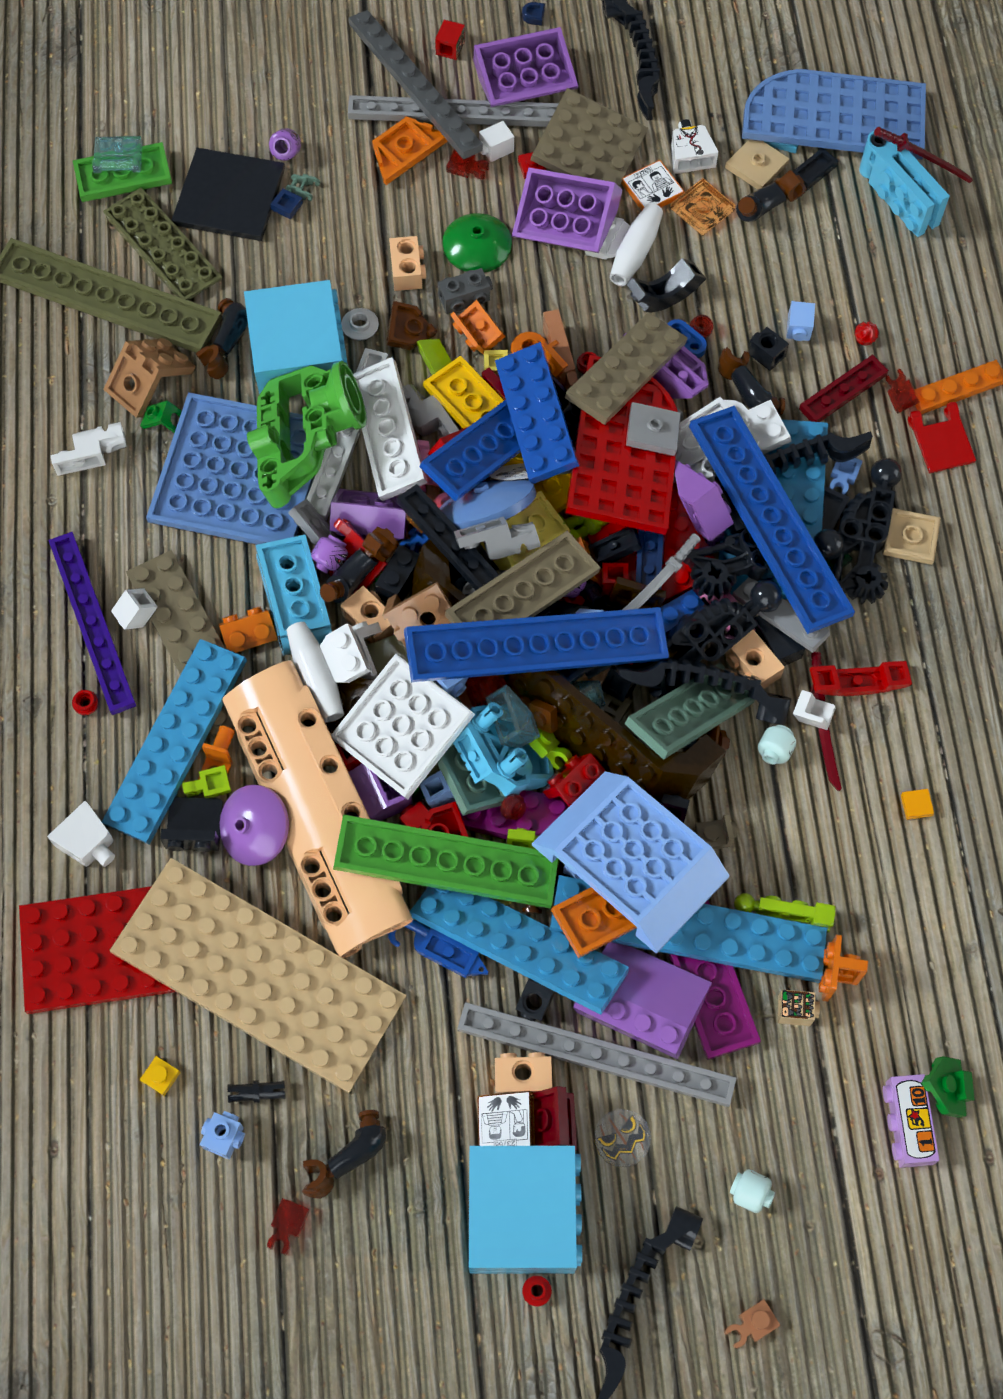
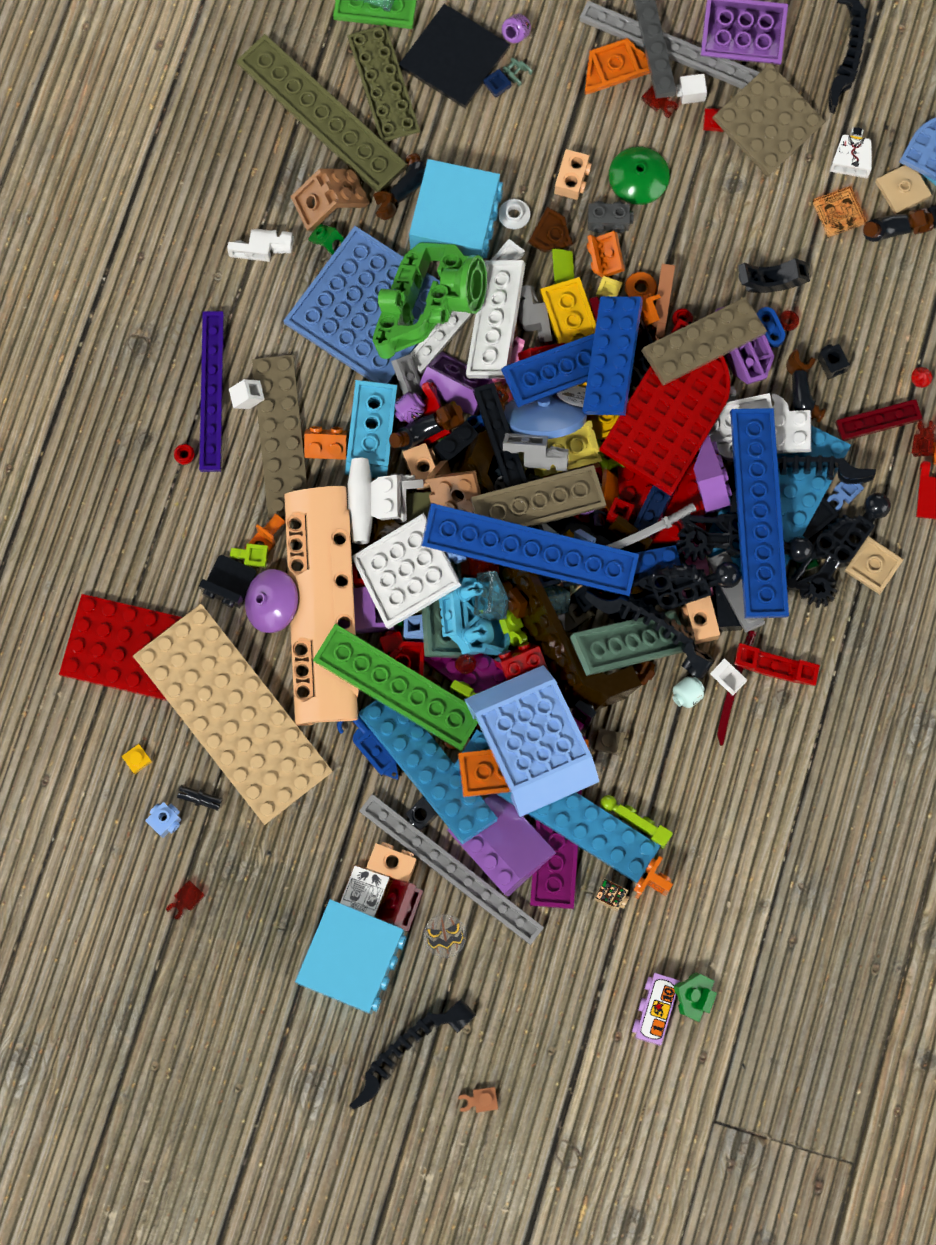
camera: 25 degrees right, 10 degrees up
(83, 837) = (146, 560): white torso -> none
(174, 741) = (238, 511): dark azure plate -> none
(365, 1145) = (260, 867): piece -> none
(530, 1298) = (346, 1018): red plate -> none
(566, 210) = (721, 177): medium lavender slope -> none
(615, 546) = (629, 487): black plate -> none
(630, 243) = (759, 221): white plate -> none
(652, 185) = (805, 178): tile -> none
(653, 429) = (700, 403): light grey plate -> none
(752, 1191) = (519, 1010): light aqua head -> none
(800, 321) = (871, 347): light blue brick -> none
(917, 804) = (775, 779): light orange tile -> none

